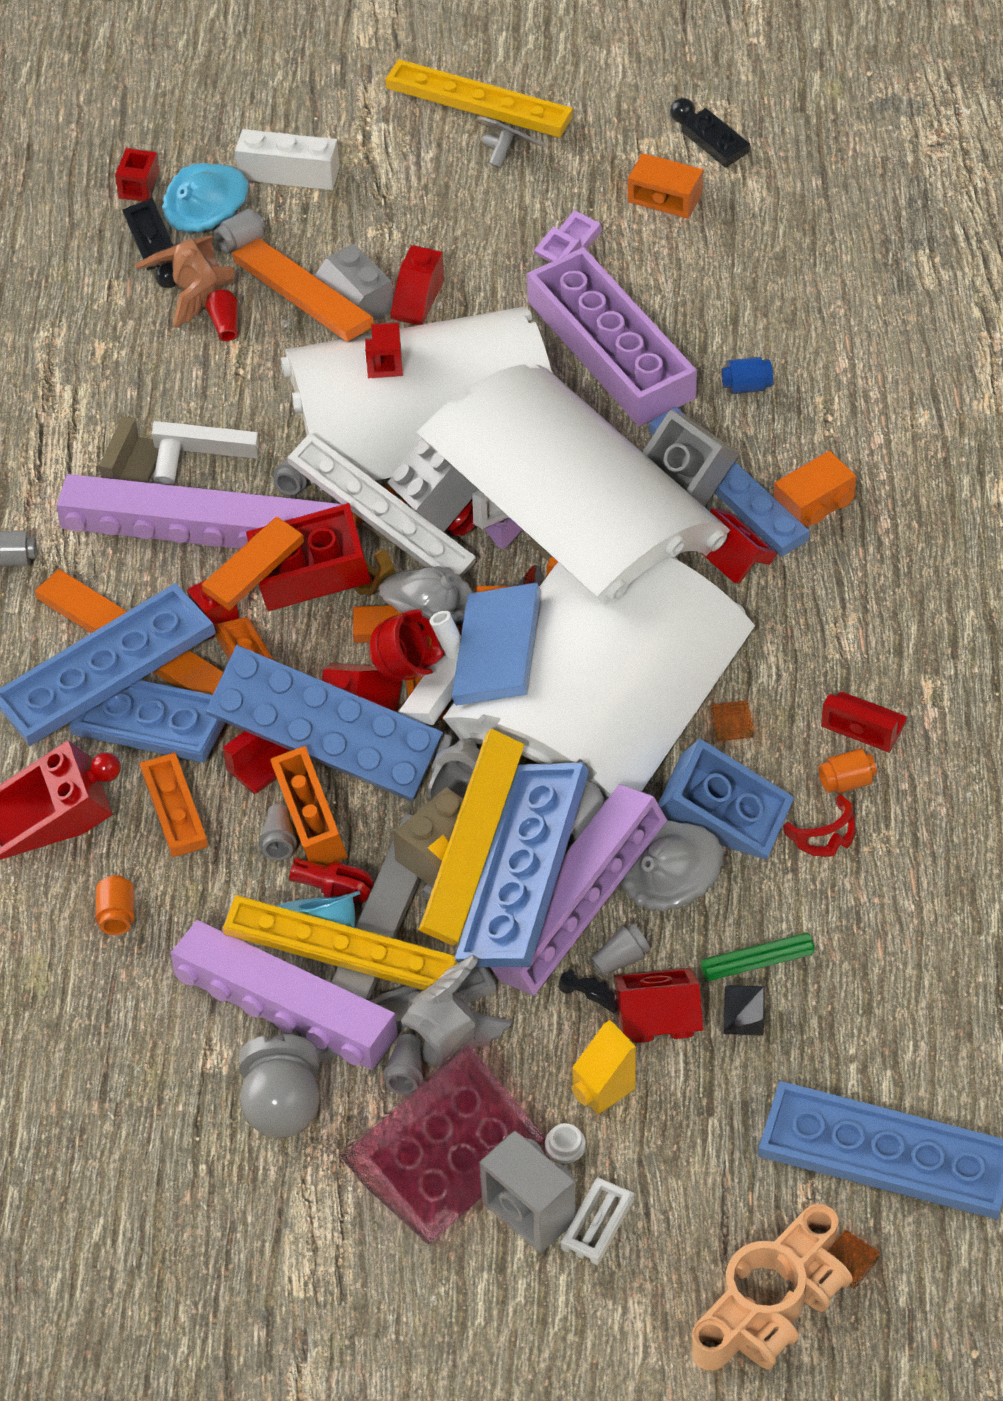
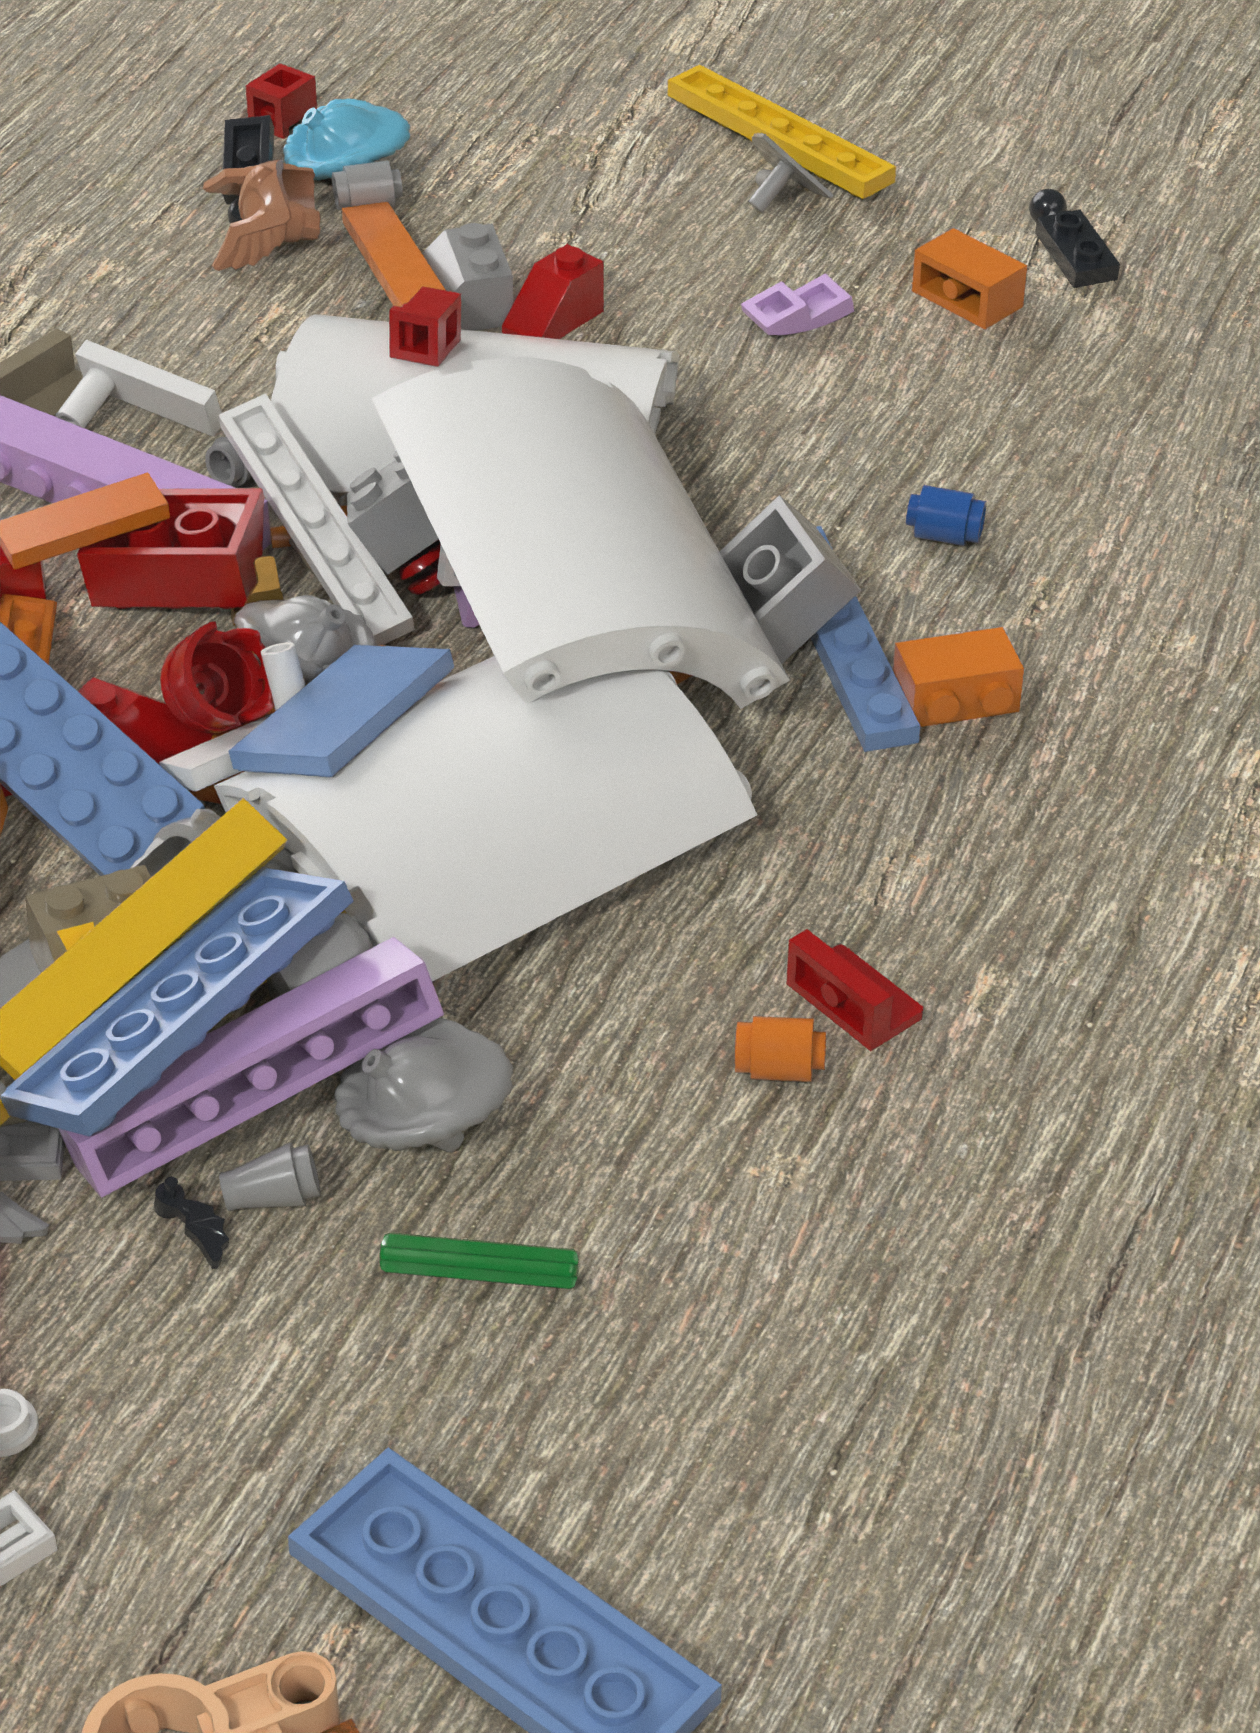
camera: 20 degrees right, 10 degrees down
(223, 312) = (282, 262): red cone -> none
(287, 159) = (481, 128): white brick -> none
(605, 1069) = (120, 1333): yellow slope -> none
(611, 336) = (778, 413): lavender brick -> none
(658, 1004) = (273, 1273): red slope -> none
(726, 800) = (564, 1027): medium blue slope -> none
(732, 721) = (650, 932): clear orange tile -> none
(740, 548) = (797, 713): red panel -> none
(744, 1010) = (407, 1328): black slope -> none
(801, 836) = (654, 1115): red helmet -> none

